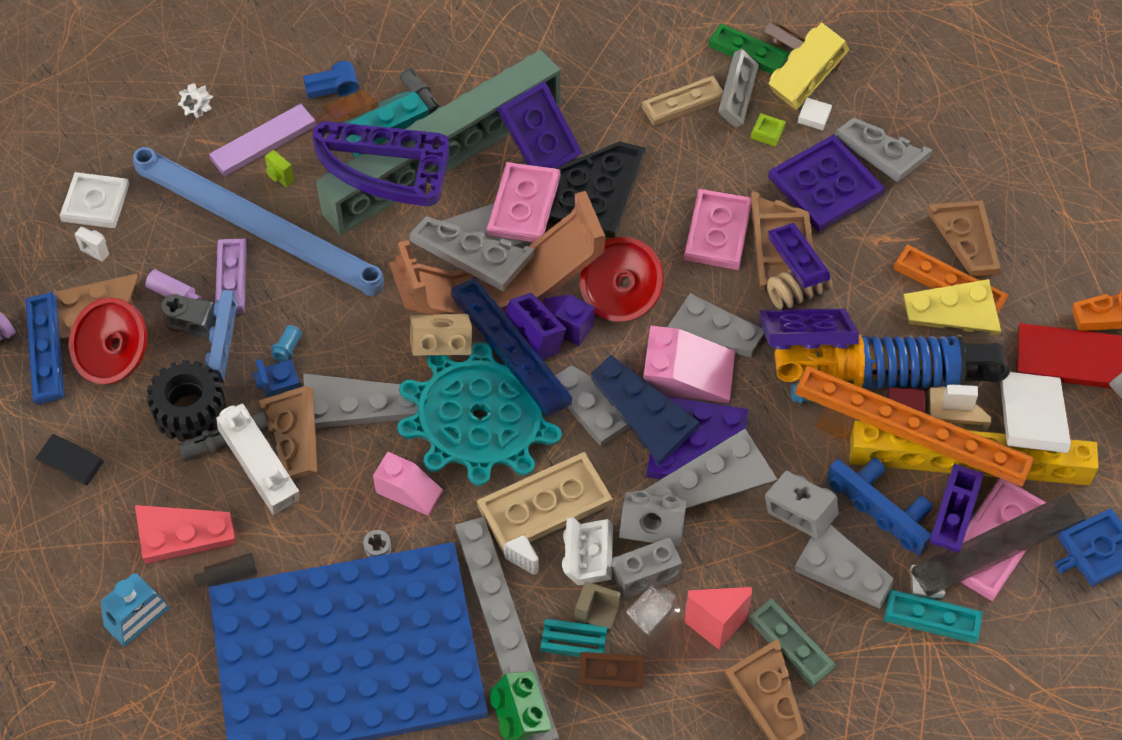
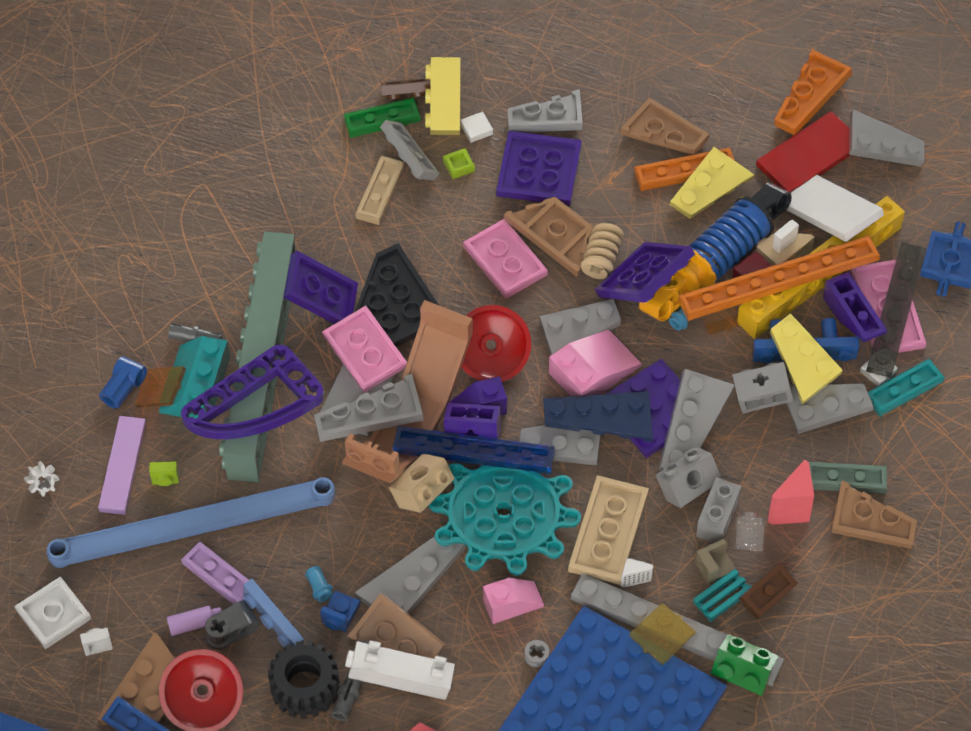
camera: 45 degrees left, 0 degrees up
(483, 621) = (662, 634): none -> clear yellow piece
(588, 551) = (672, 533): white bracket -> none
(799, 255) = (587, 230): dark purple tile -> none
(860, 513) = (805, 359): none -> light yellow wing

